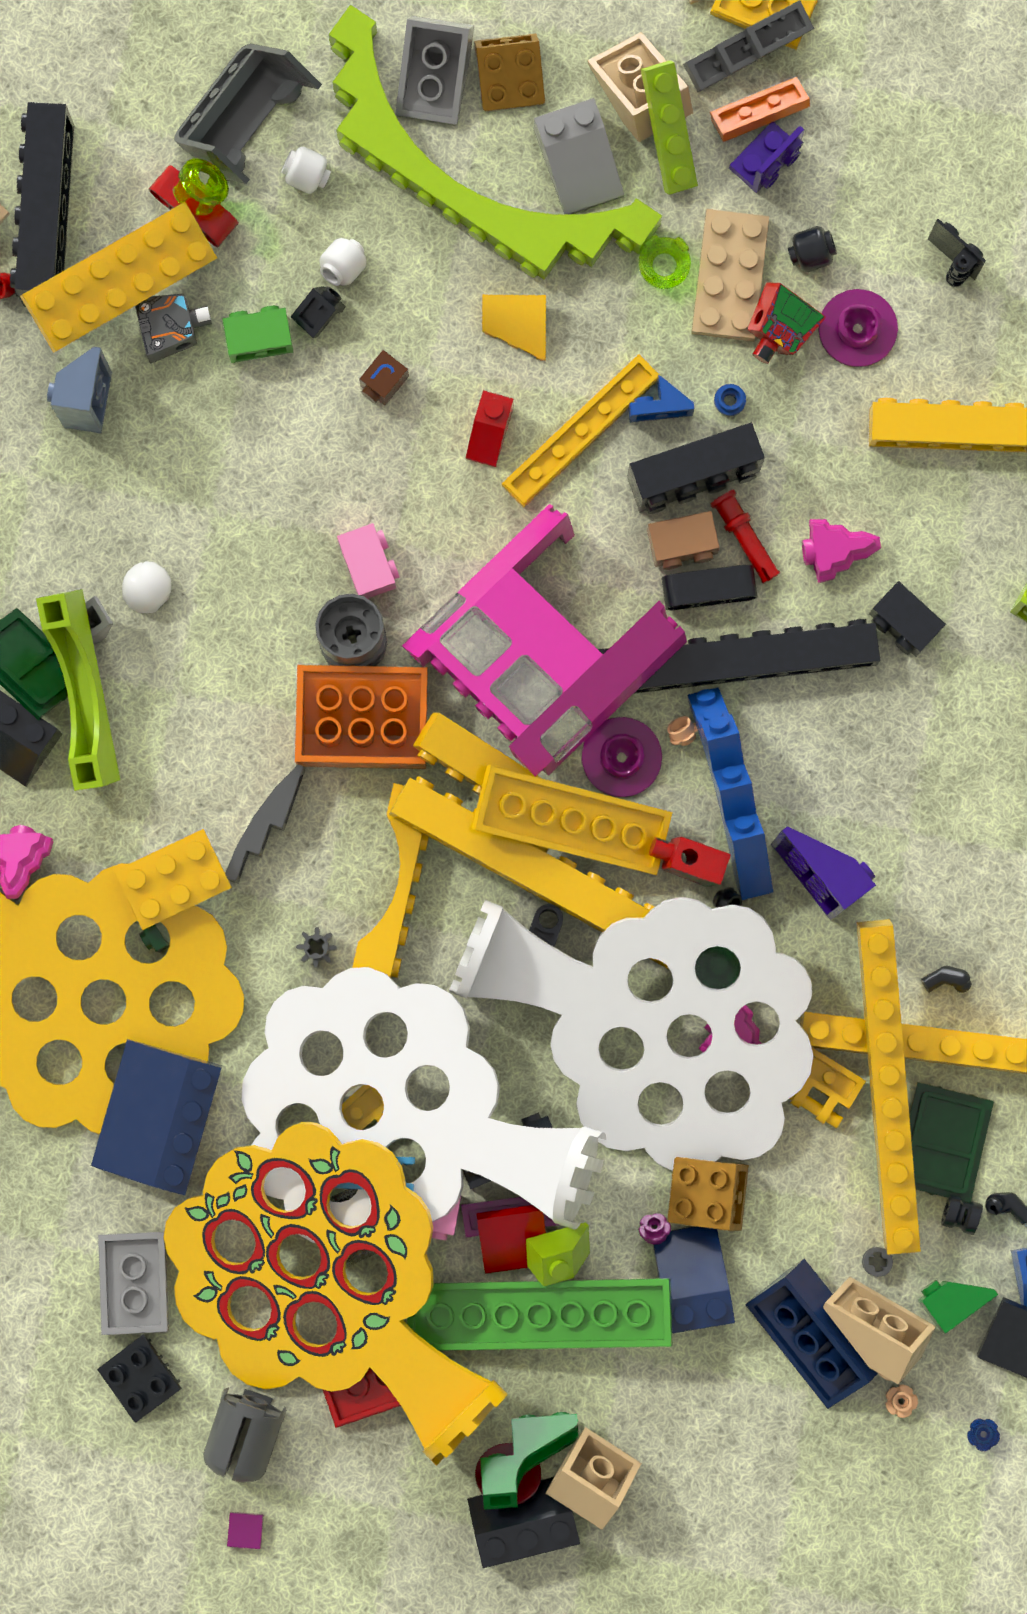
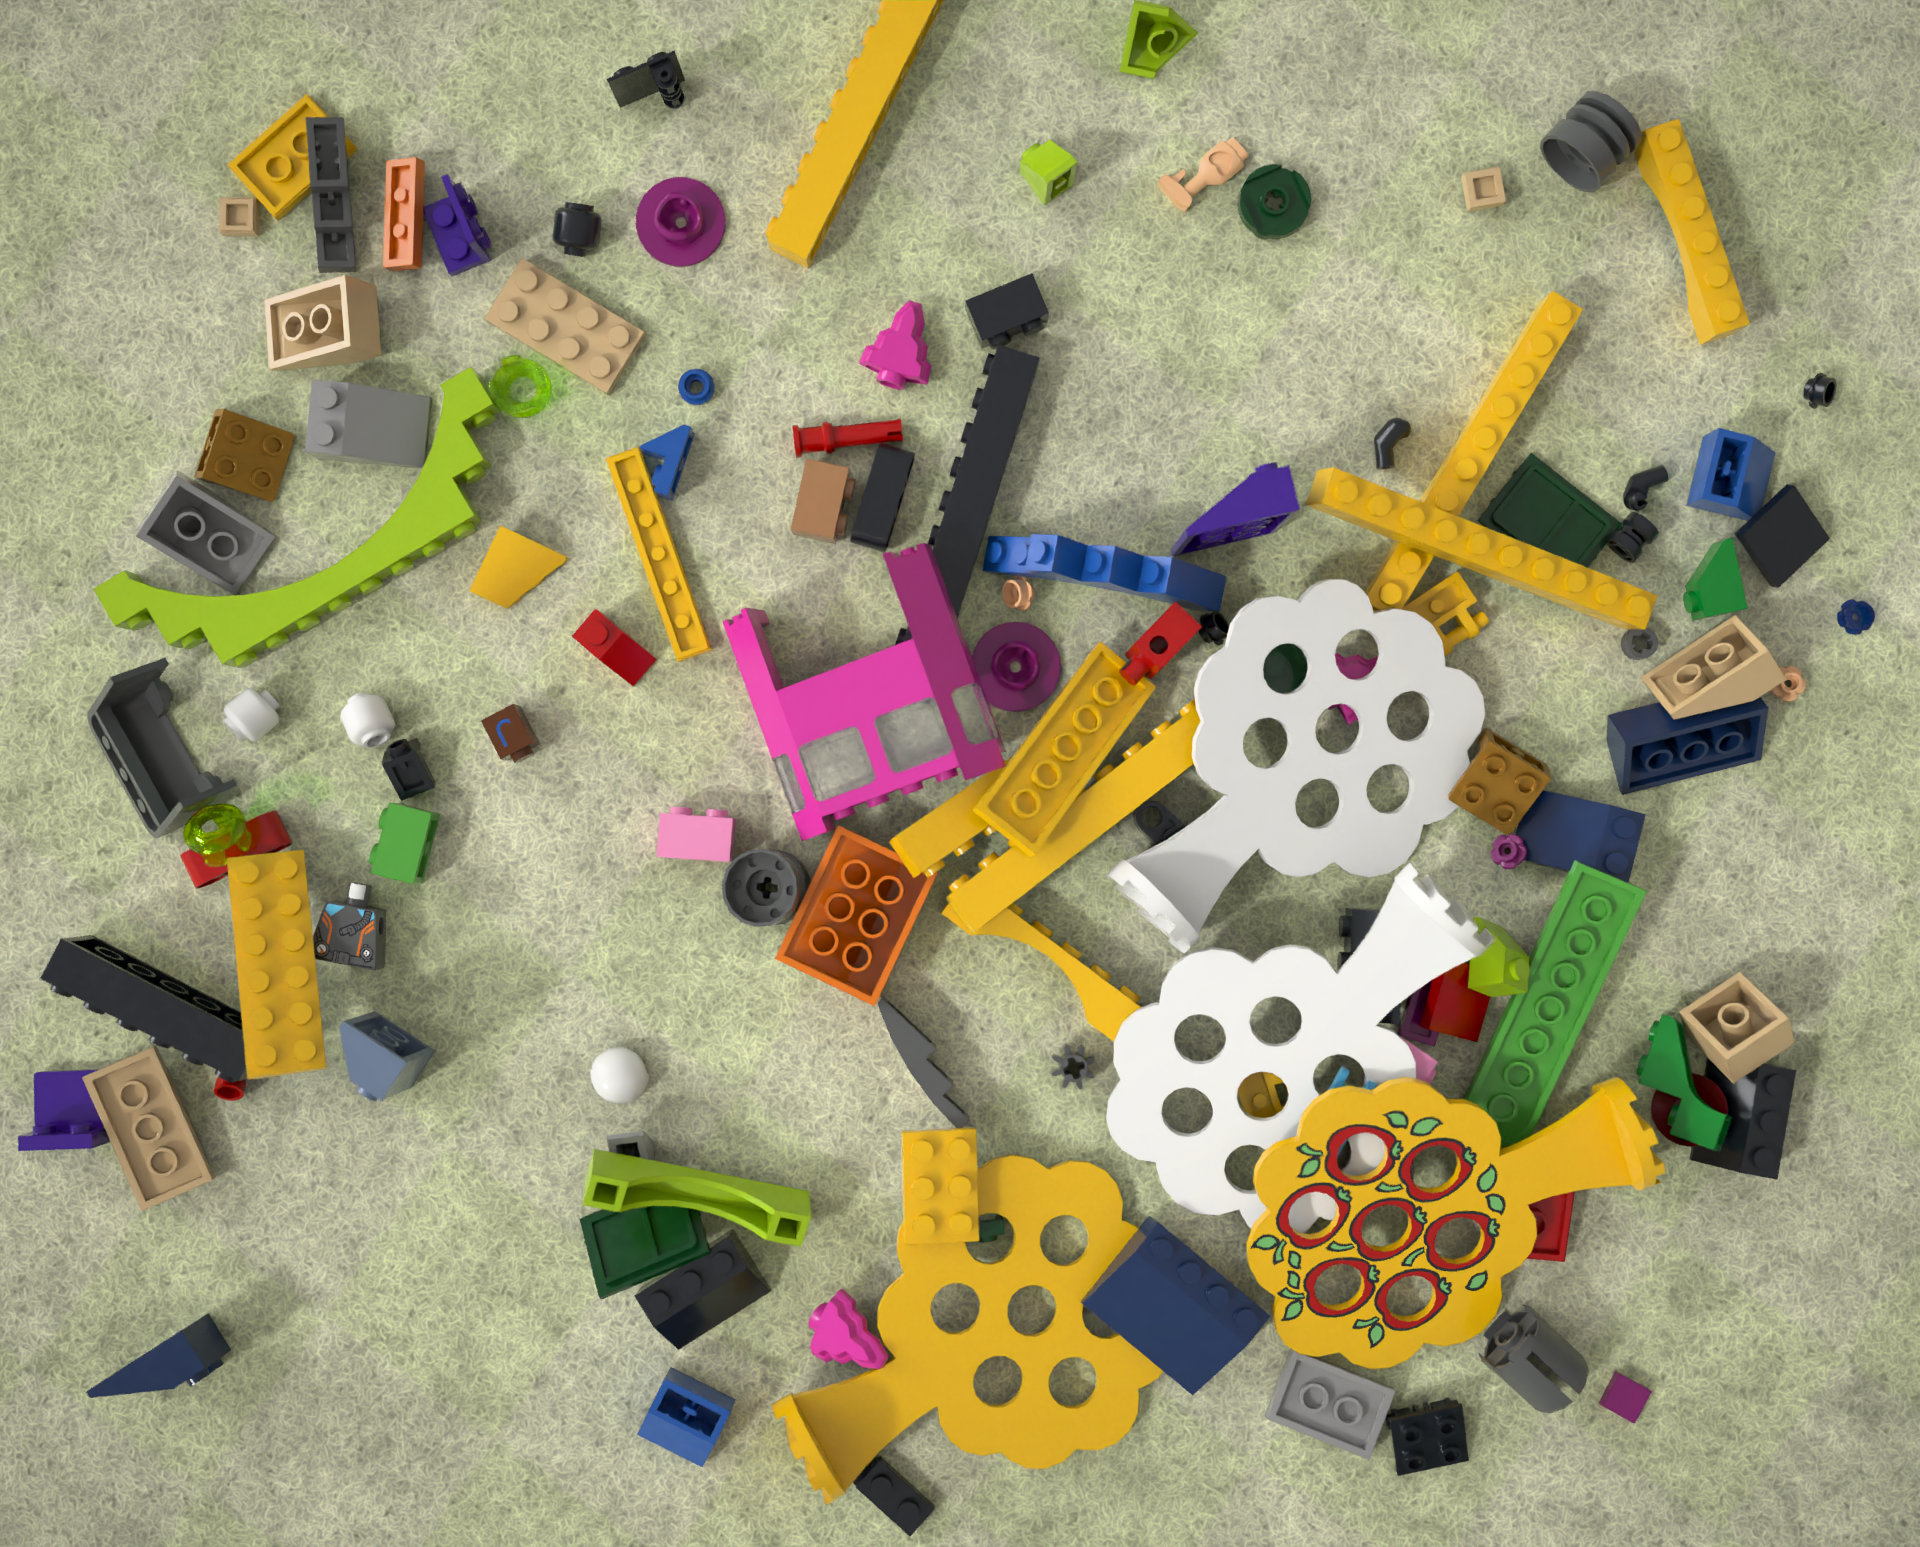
camera: 65 degrees left, 5 degrees up
(669, 127) = (379, 314): lime plate -> none
(696, 468) = (753, 453): black brick -> none
(782, 322) = (640, 295): torso -> none

